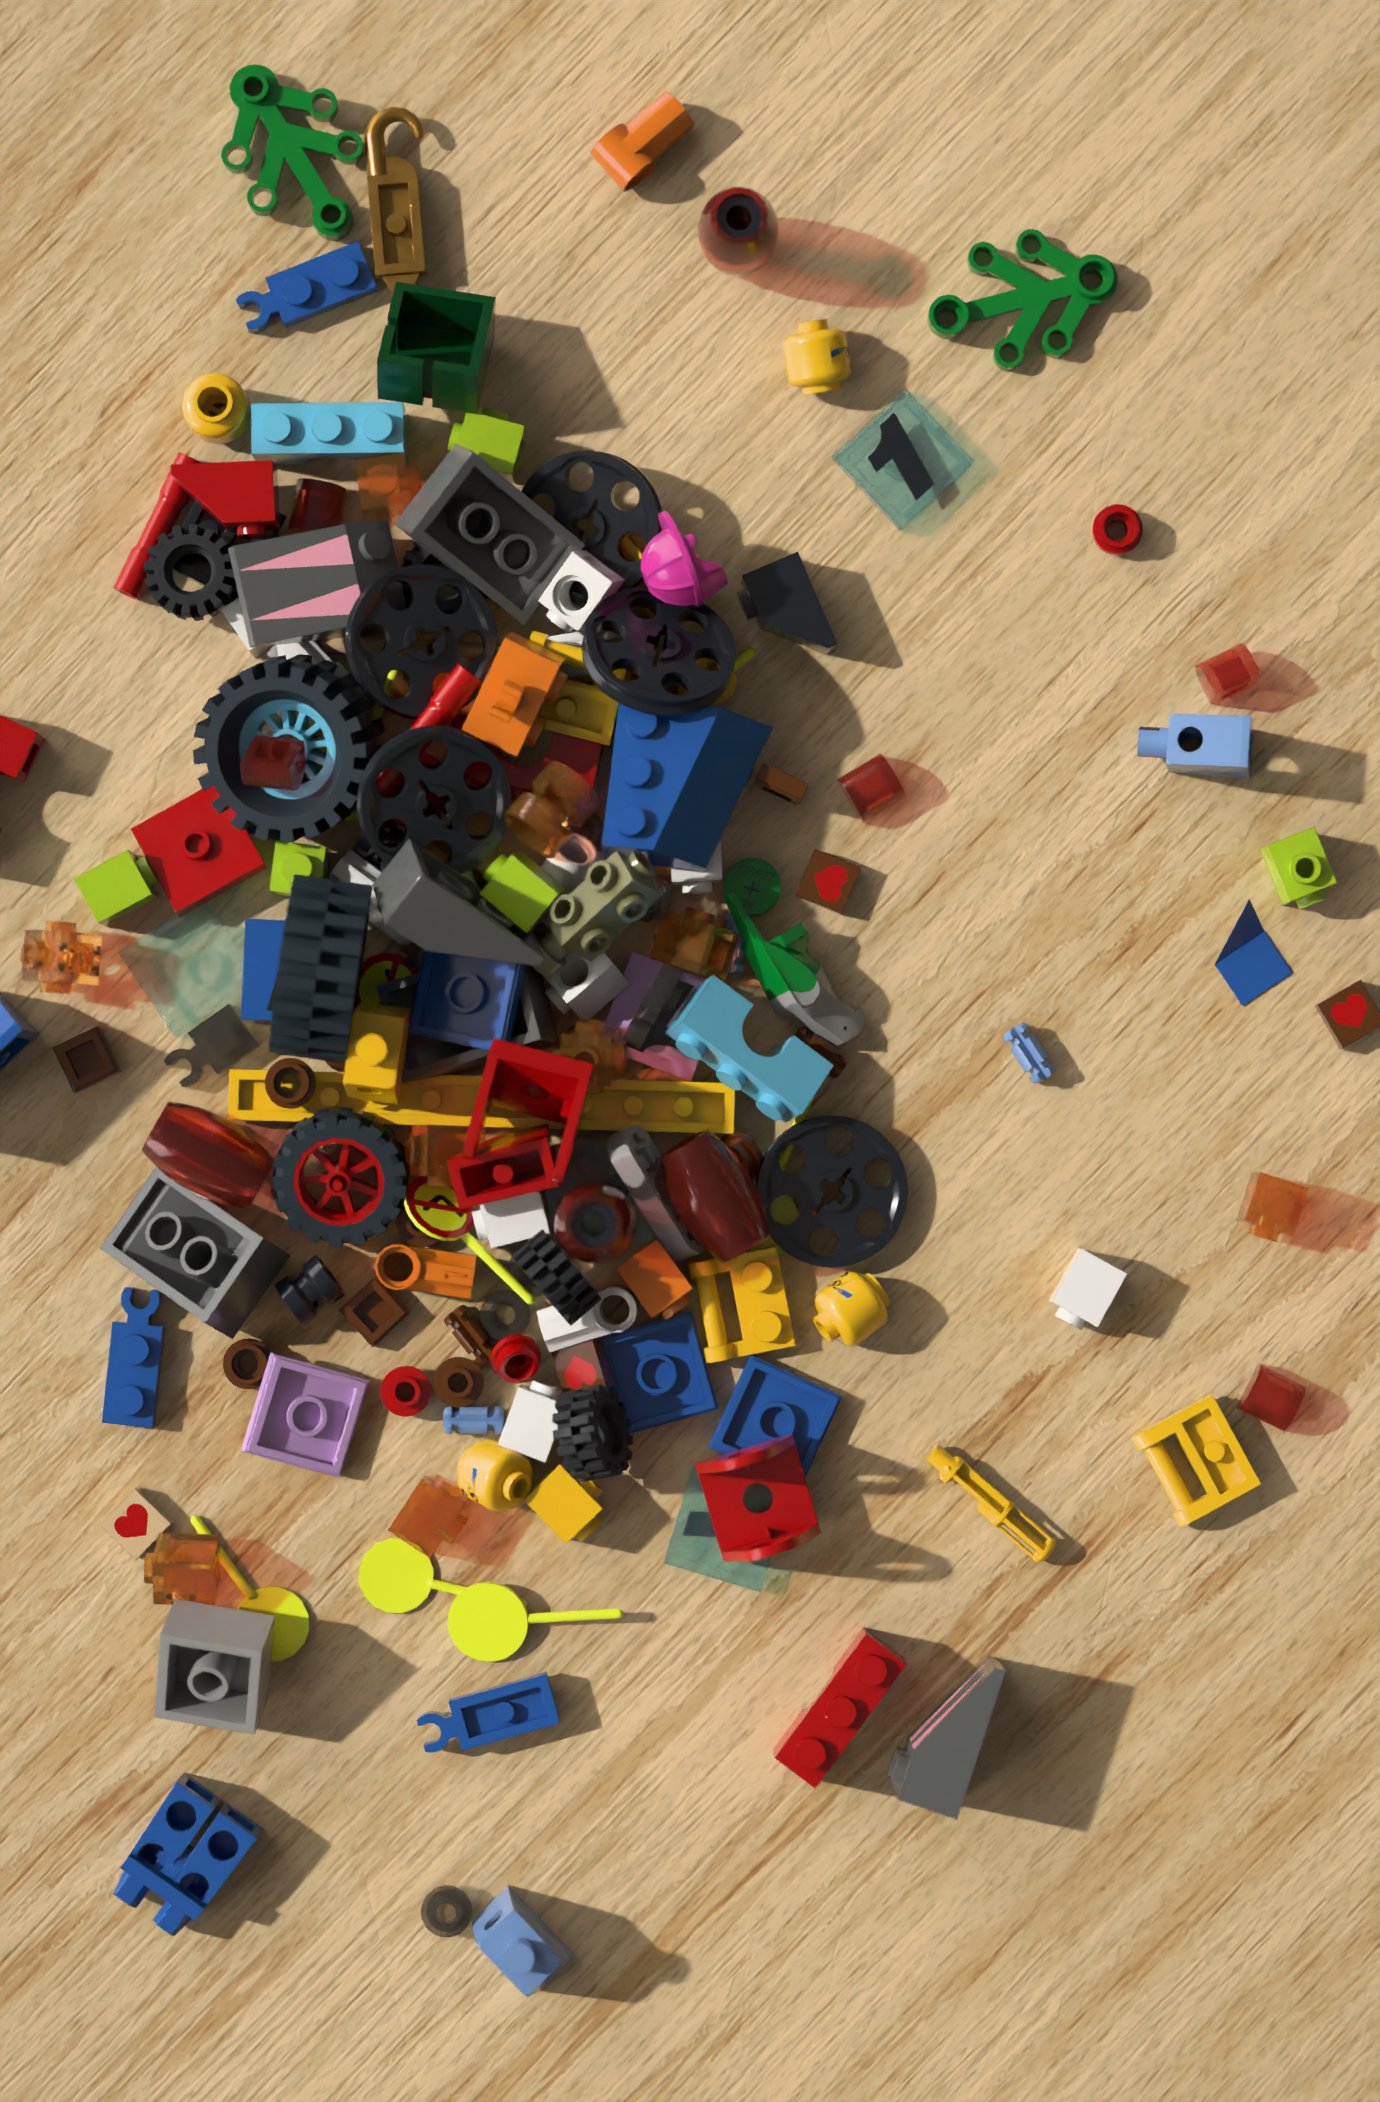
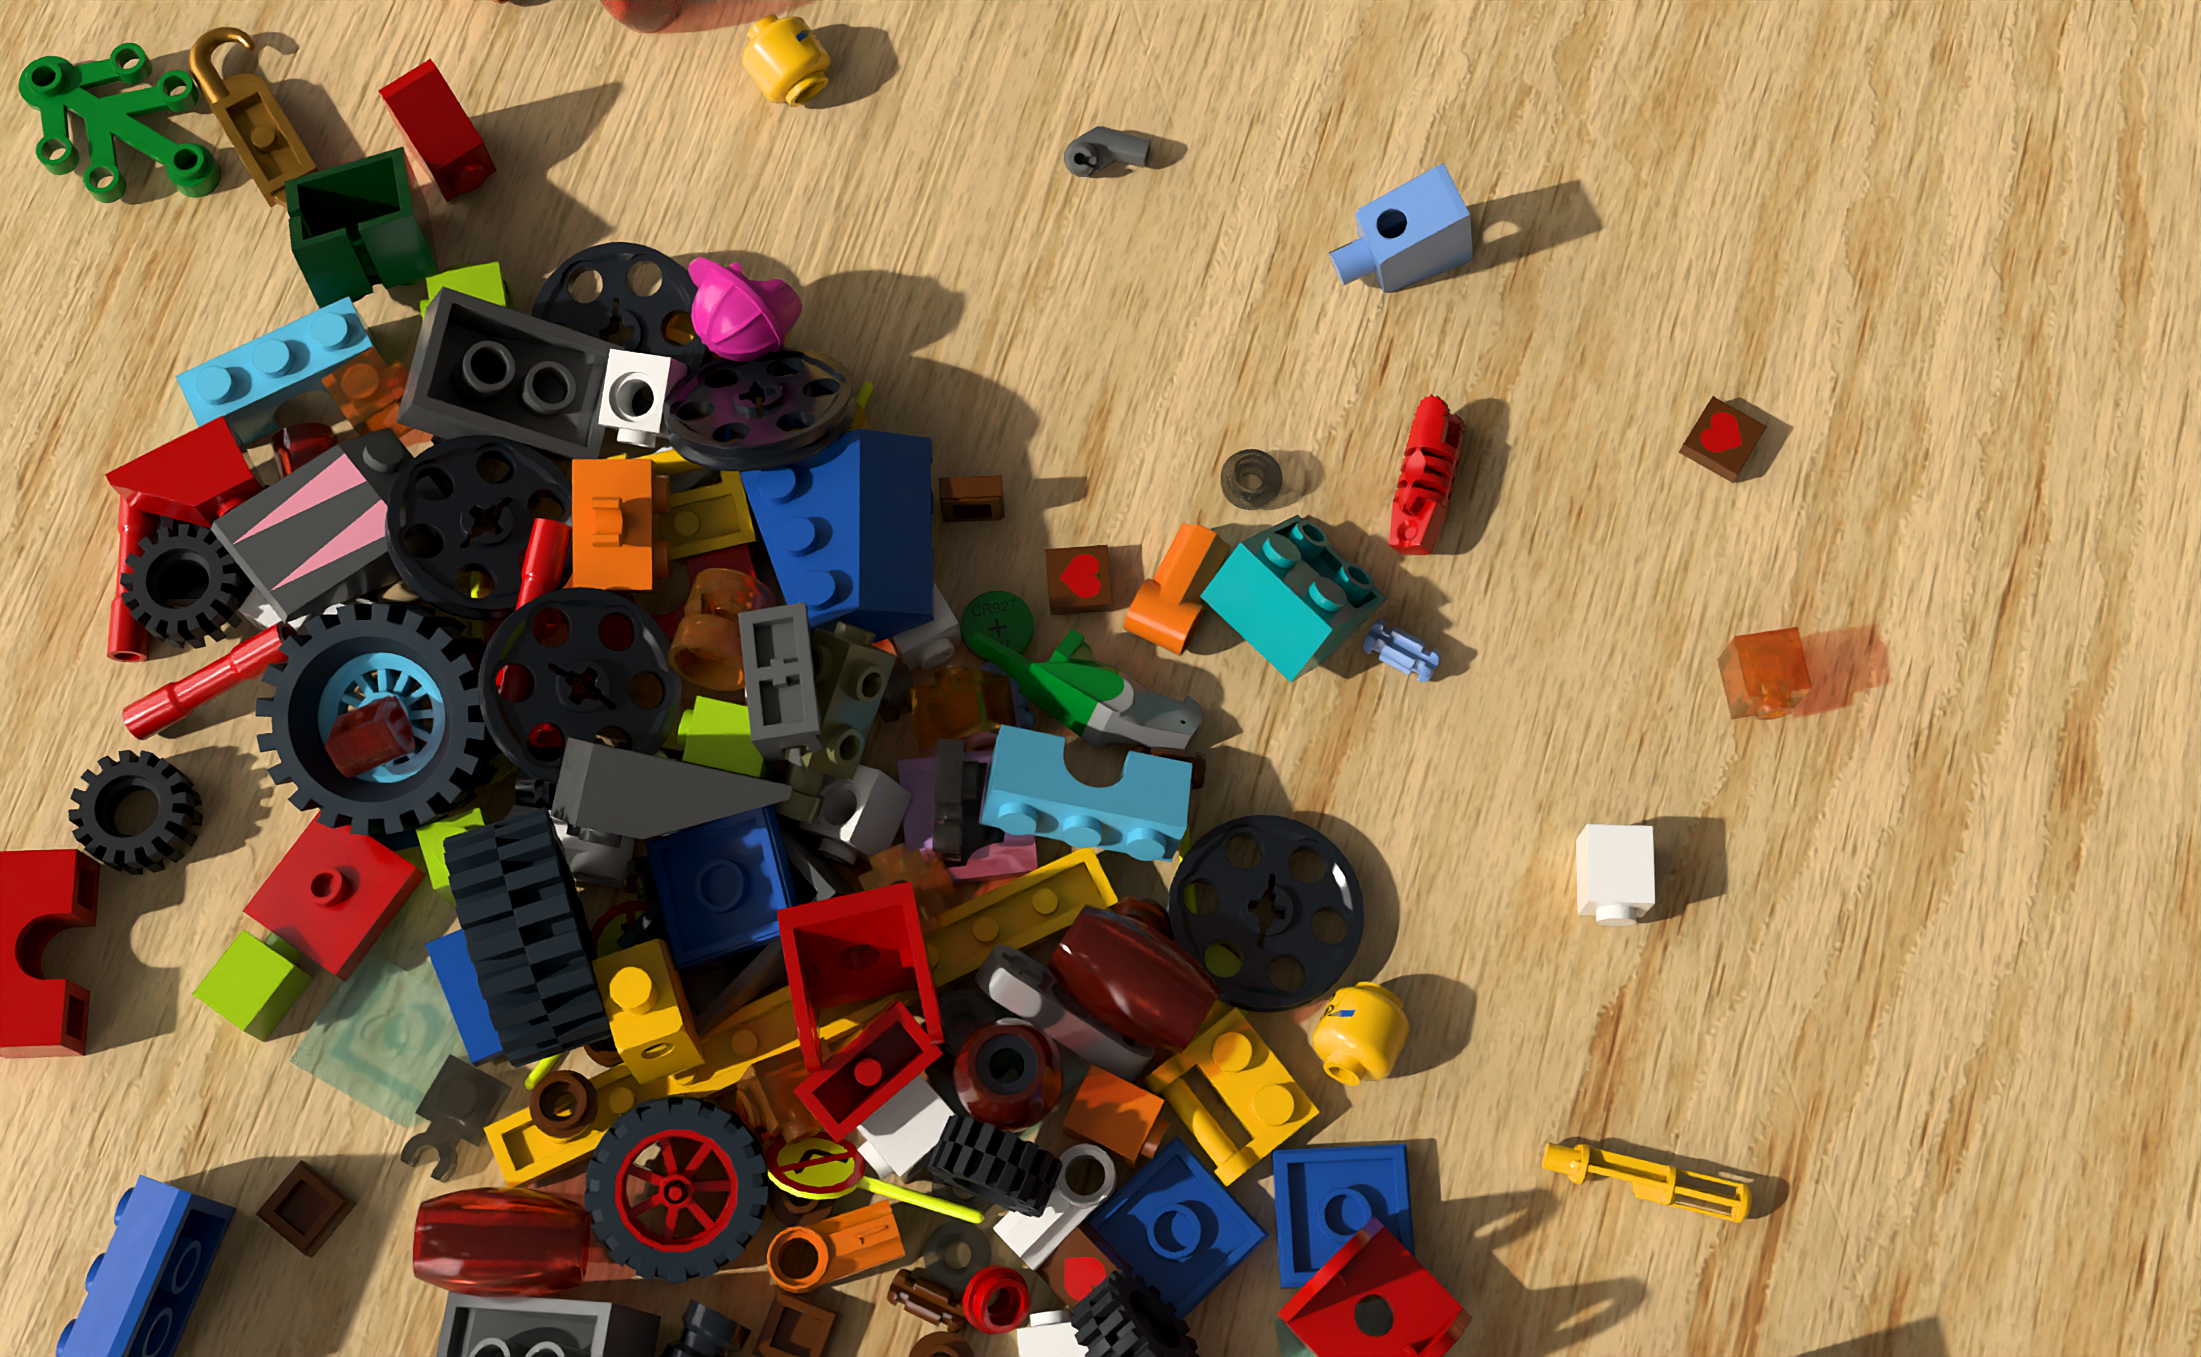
camera: 25 degrees left, 15 degrees down
(60, 957) = (216, 1097): clear orange brick -> none
(65, 696) = (110, 787): none -> black tyre
(149, 651) = (180, 698): none -> red piece
(203, 398) = (141, 406): yellow head -> none
(312, 288) = (199, 250): blue plate -> none
(528, 295) = (438, 131): none -> red slope
(572, 882) = (780, 680): none -> dark grey hinge
(786, 604) = (883, 313): black slope -> none
(871, 787) = (1075, 457): clear red brick -> none
(883, 935) = (1170, 604): none -> orange piece
(902, 459) = (930, 121): clear light blue tile -> none
(973, 975) = (1293, 595): none -> teal slope
(1002, 858) = (1255, 463): none -> clear smoke plate
(1020, 548) = (1103, 147): none -> dark grey arm
(1117, 935) = (1426, 478): none -> red hinge
(1123, 515) = (1195, 67): red plate -> none
(1211, 1452) = (1863, 988): yellow plate -> none
(1227, 673) = (1390, 159): clear red brick -> none
(1250, 959) = (1581, 438): blue sticker -> none
(1272, 1397) = (1891, 891): clear red brick -> none
(1299, 868) = (1579, 314): lime brick -> none

